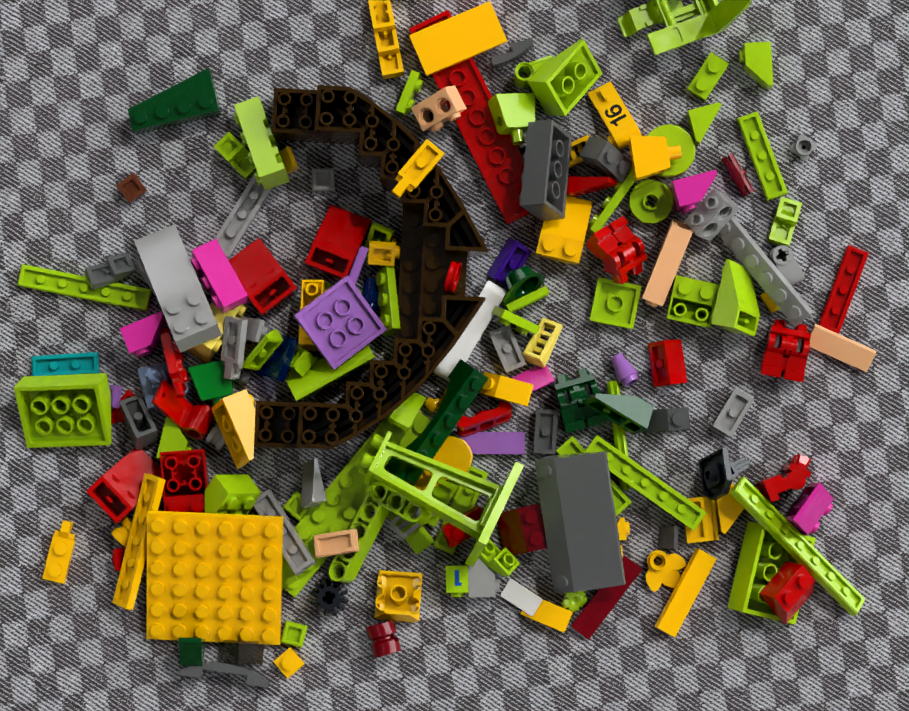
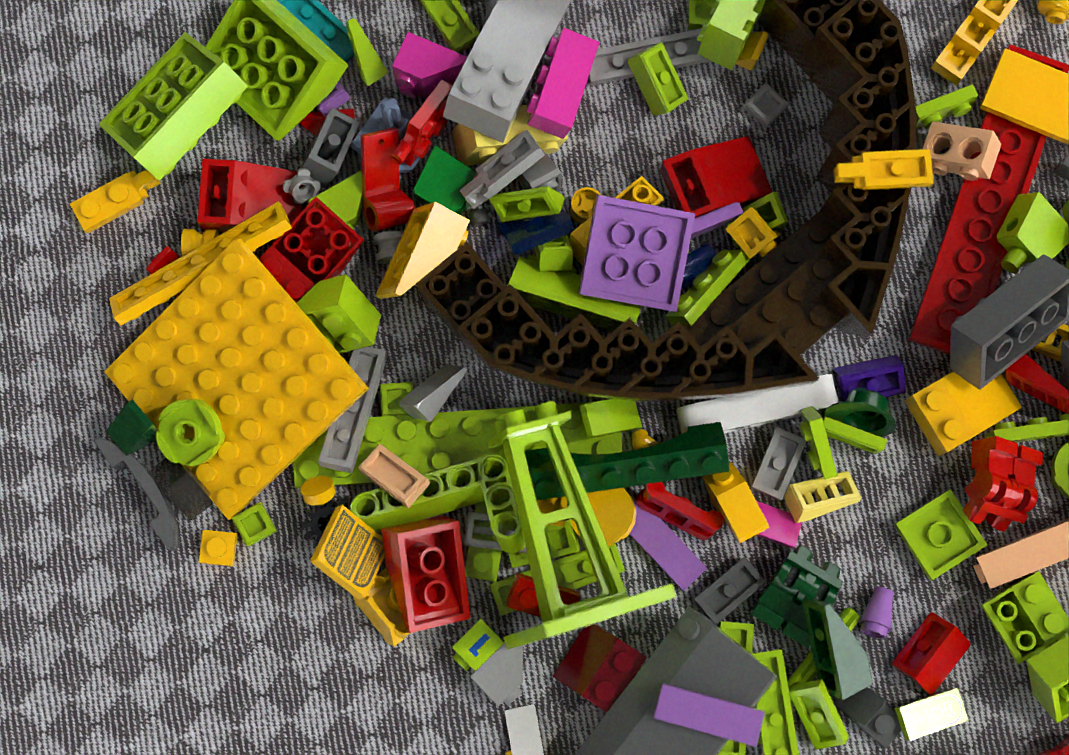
camera: 45 degrees right, 5 degrees down
(41, 480) = (173, 105): none -> lime slope
(112, 360) = (368, 62): none -> lime slope
(146, 453) = (303, 194): none -> light grey plate
(220, 611) = (207, 432): none -> lime plate
(259, 222) = (657, 79): none -> lime slope
(262, 277) = (603, 137): red slope -> none
(286, 319) = (583, 201): none -> yellow wheel
(308, 587) = (318, 490): none -> yellow tile
(354, 599) = (349, 552): none -> yellow tile
(383, 638) = (337, 626): dark red wheel -> none
(398, 570) = (427, 572): none -> red slope
(452, 277) = (805, 323): red piece -> none
(498, 560) = (541, 673): lime slope -> none
(593, 500) = (709, 714): none -> medium lavender tile
(644, 446) = (818, 714): none -> lime plate
(695, 391) = (931, 714): none -> tile

